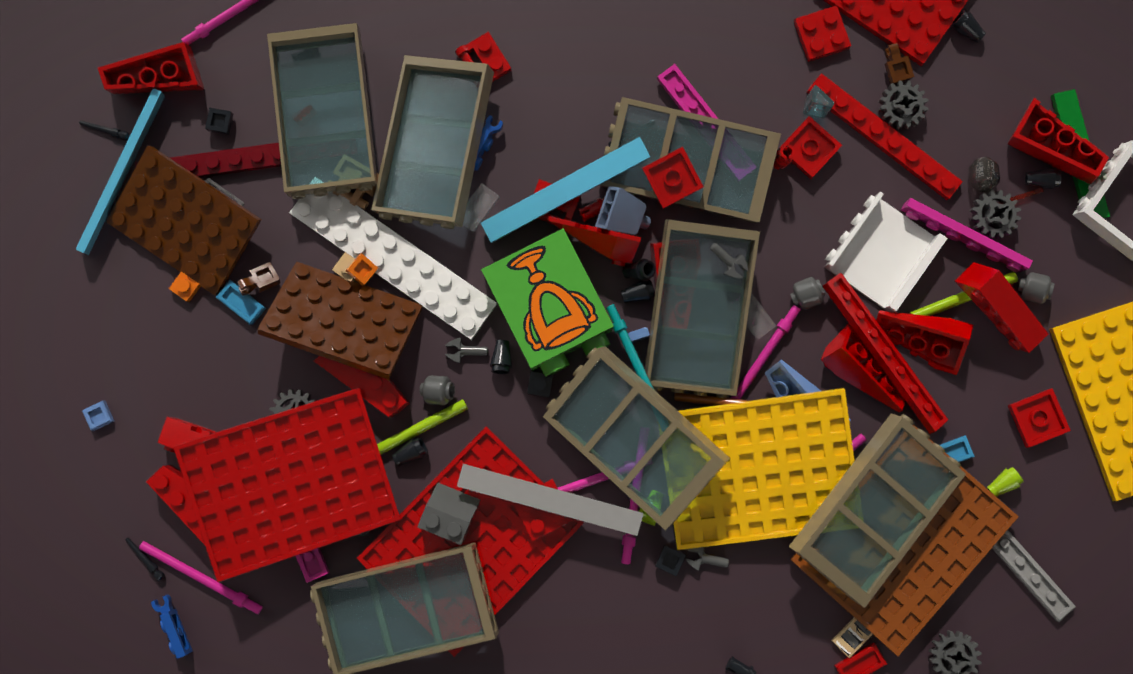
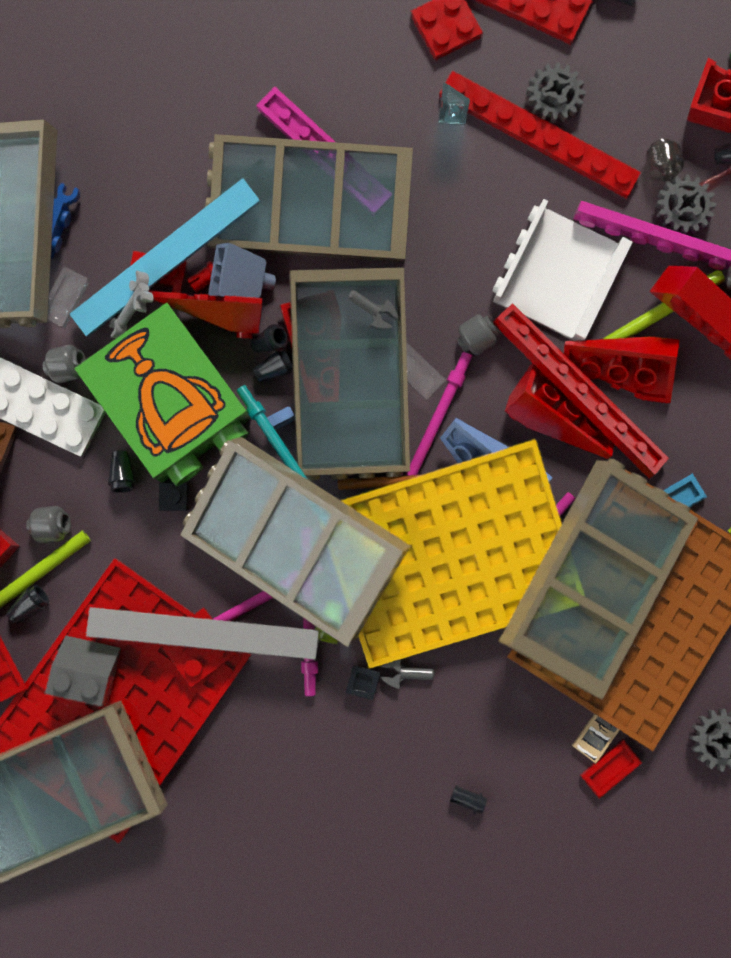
camera: 15 degrees left, 0 degrees up
(465, 350) = (75, 471): dark grey bar -> none
(469, 262) = (61, 361): none -> dark grey head
(487, 53) = (47, 108): red plate -> none
(537, 223) = (136, 303): none -> light grey bar
(672, 177) = (291, 221): red plate -> none
(784, 157) = (421, 176): red pin -> none
(812, 147) = (452, 161): red plate -> none
(897, 67) = (541, 49): reddish brown plate -> none

